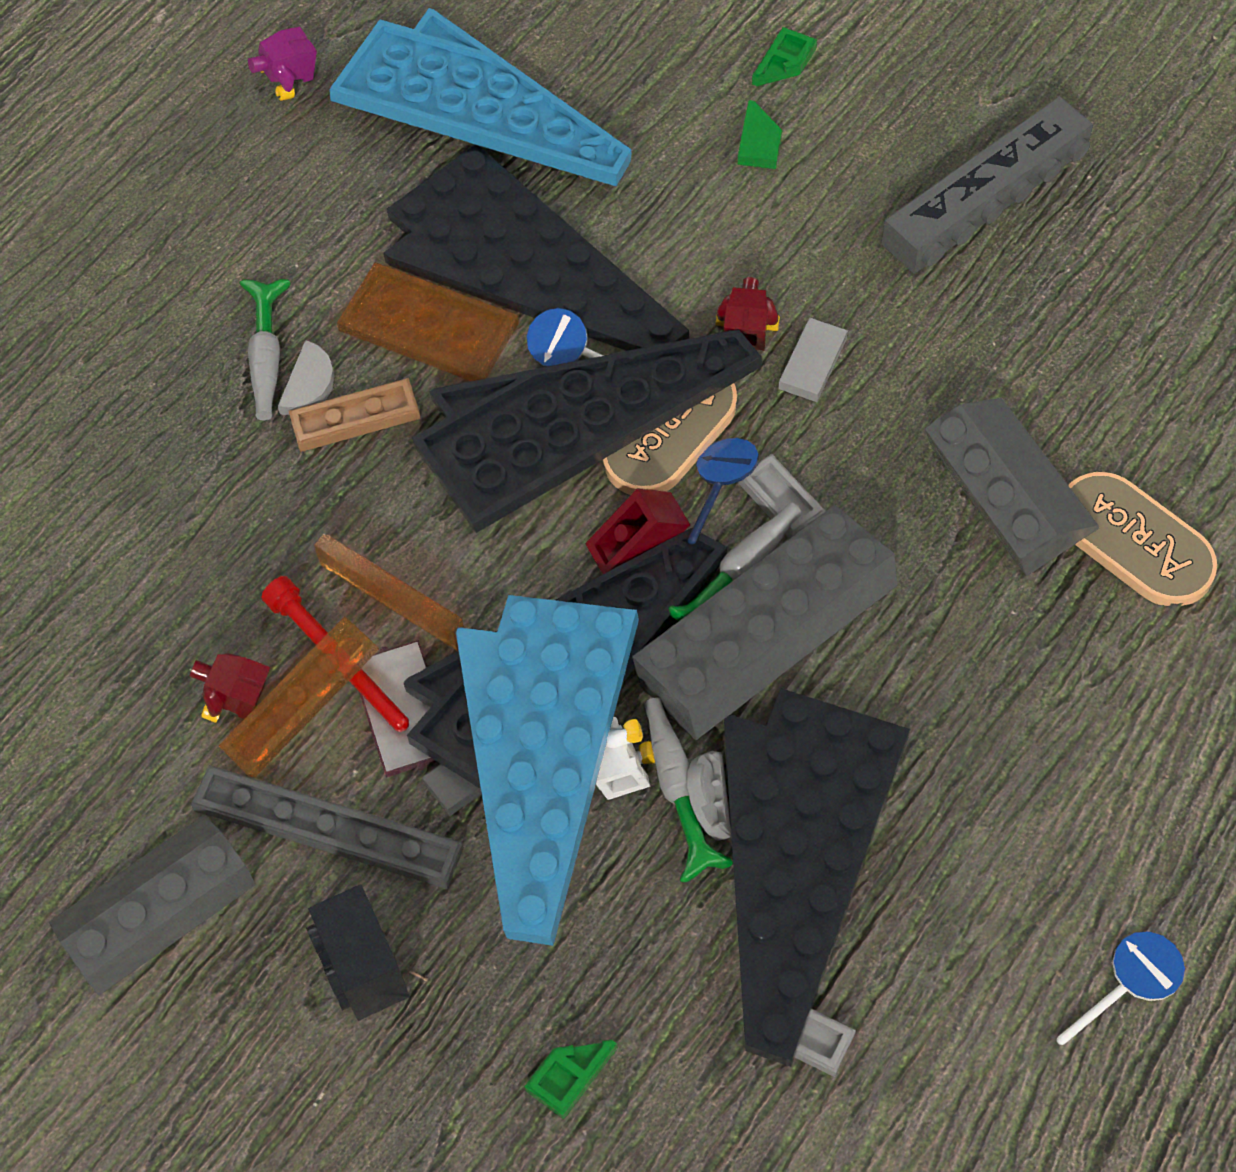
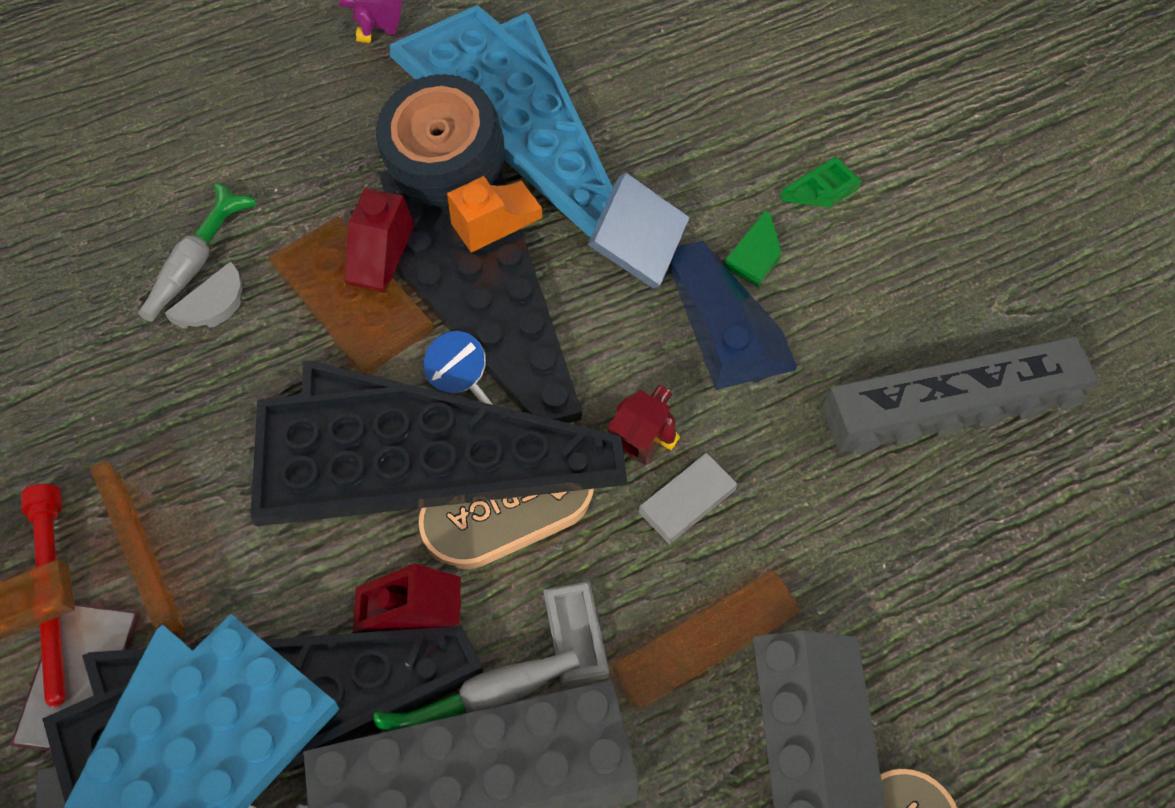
camera: 20 degrees right, 0 degrees up
(354, 414) = (229, 352): medium nougat tile -> none
(433, 263) = (376, 239): none -> dark red slope
(441, 153) = (439, 137): none -> wheel
(517, 198) = (491, 212): none -> orange arch
(654, 160) = (638, 230): none -> tile
(720, 465) = (534, 570): blue piece -> none
(768, 209) = (729, 325): none -> dark blue wedge
(887, 453) = (705, 639): none -> clear orange tile

